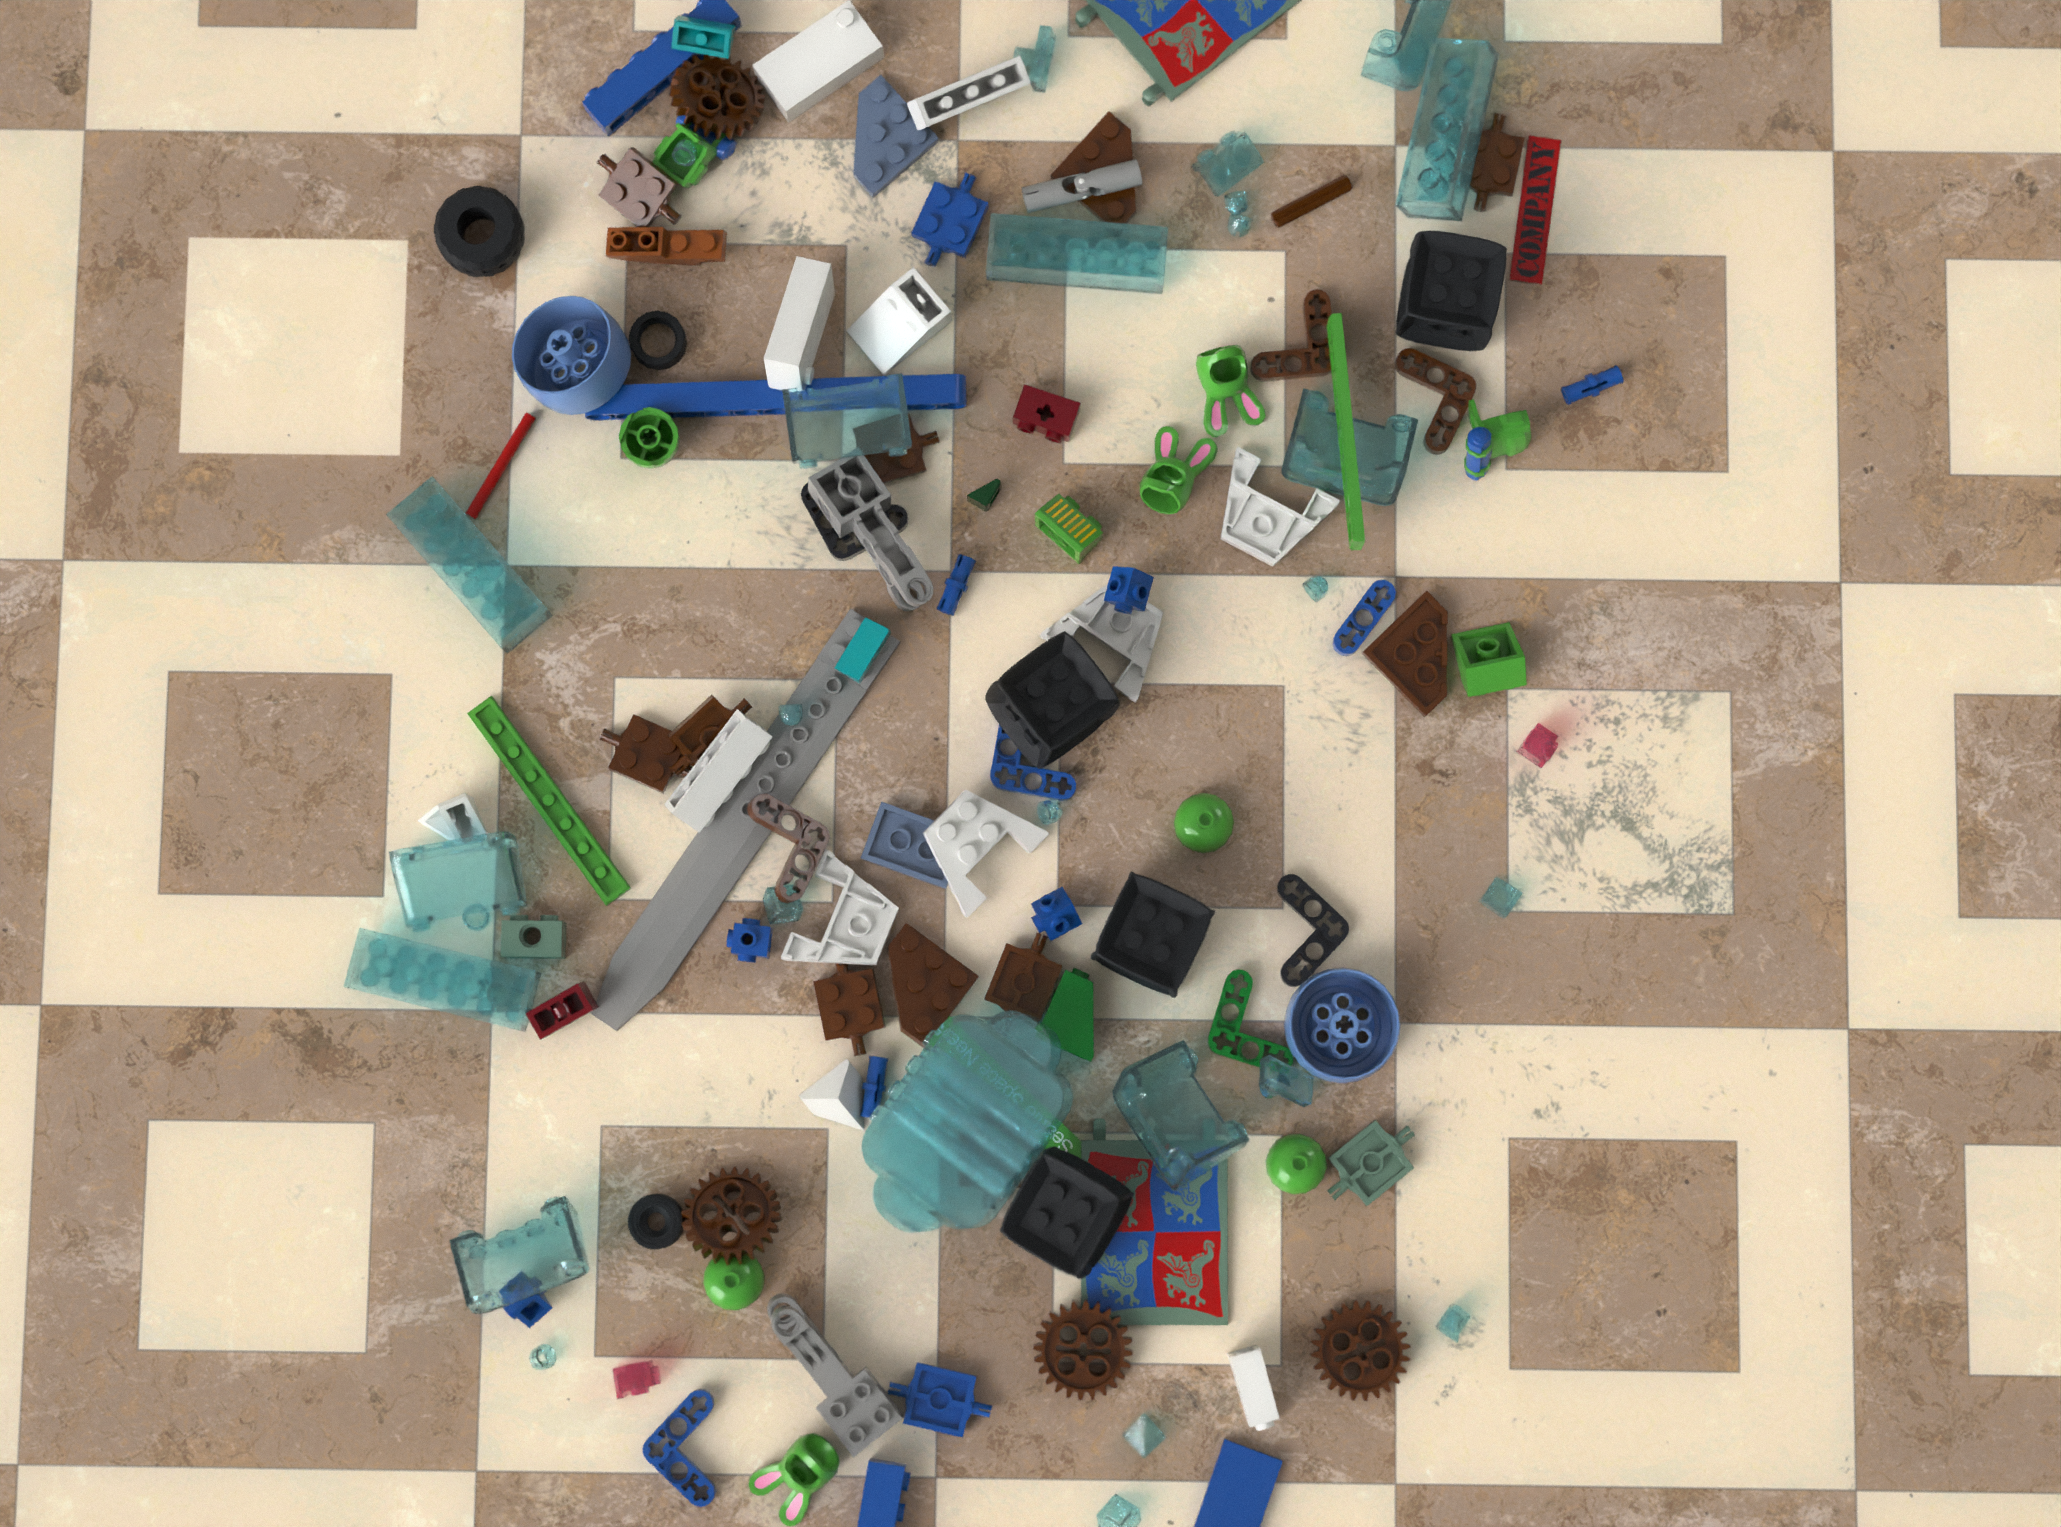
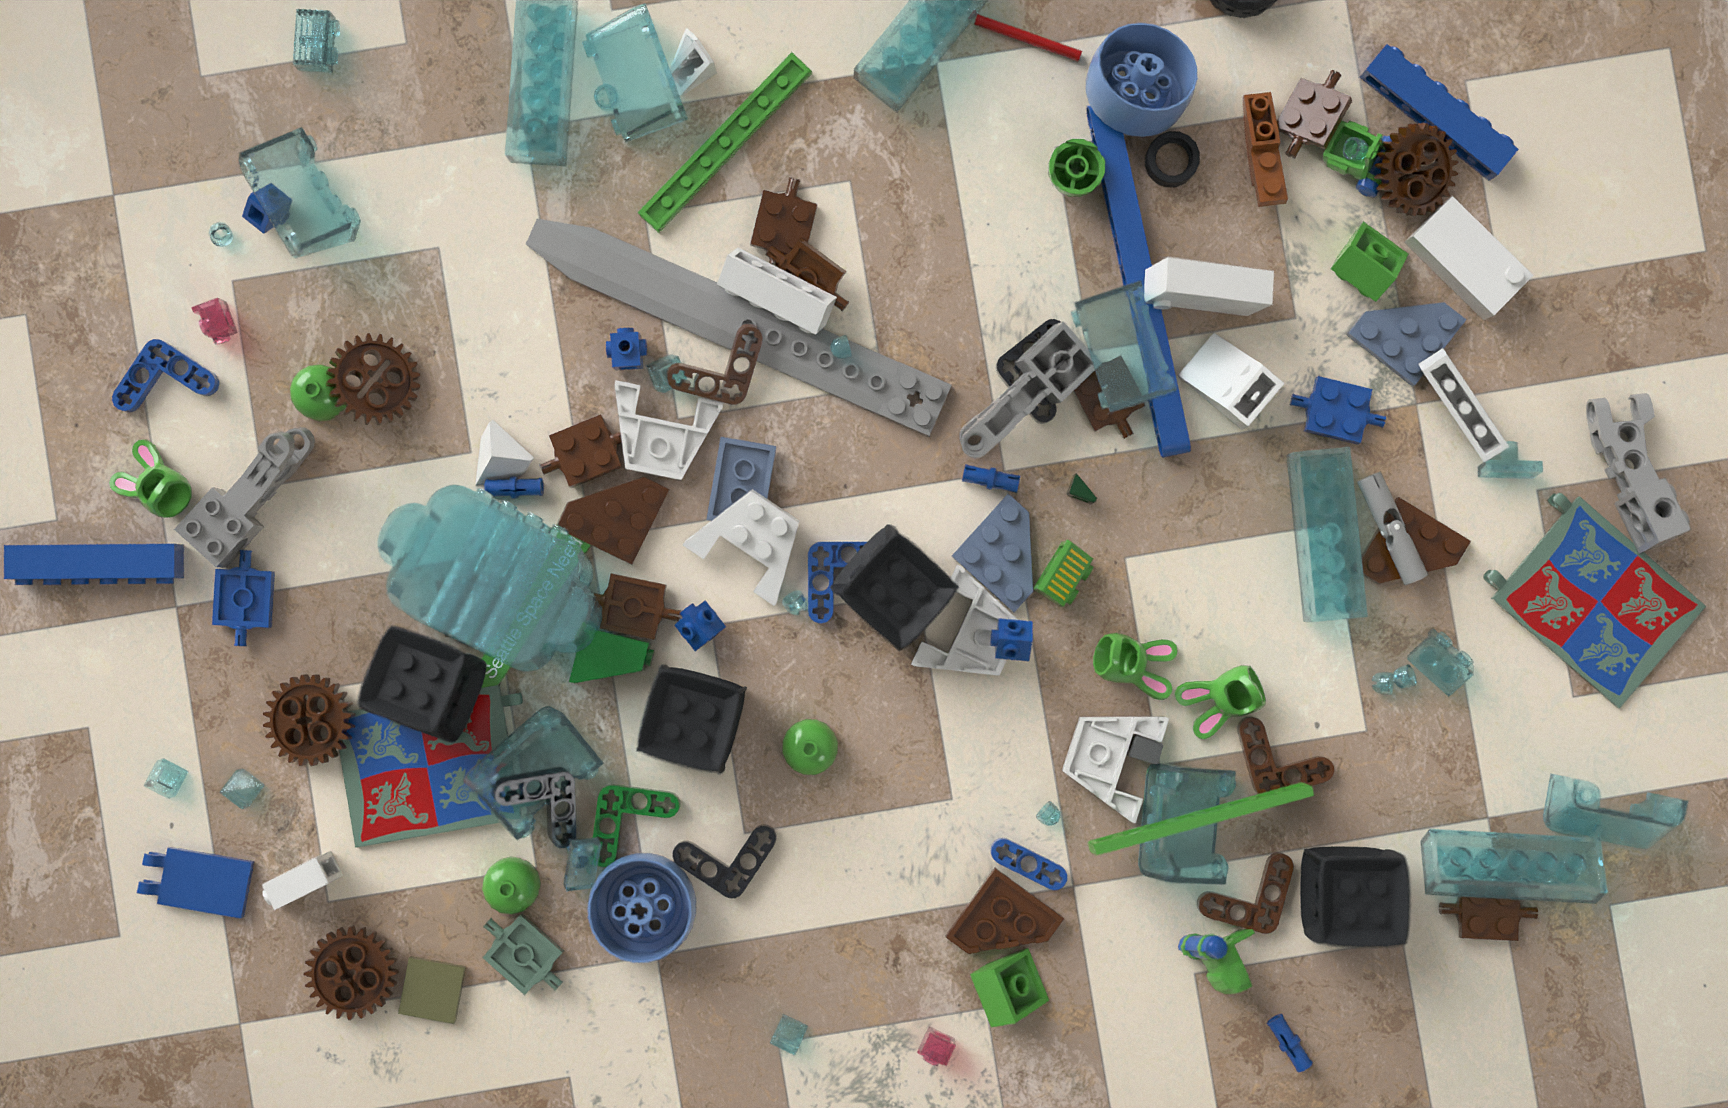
camera: 75 degrees right, 5 degrees up
(354, 1218) = (315, 40): none -> clear light blue brick
(515, 943) = (592, 135): sand green brick -> none
(562, 1010) = (532, 190): dark red brick -> none
(639, 1226) = (347, 301): black tyre -> none
(702, 36) = (1471, 144): teal slope -> none
(803, 160) = (1369, 262): none -> bright green slope
(862, 650) = (913, 402): teal slope -> none
(1034, 403) = (1177, 520): dark red brick -> none
(1036, 588) = (1001, 553): none -> sand blue plate
(1208, 1099) = (547, 790): none -> black beam
(1265, 476) = (1145, 749): none -> dark grey slope
(1311, 201) = (1419, 747): reddish brown axle -> none
(1393, 1267) = (432, 990): none -> olive tile
(1453, 1322) = (392, 1052): clear light blue slope -> none
(1535, 209) = (1450, 961): red sticker -> none

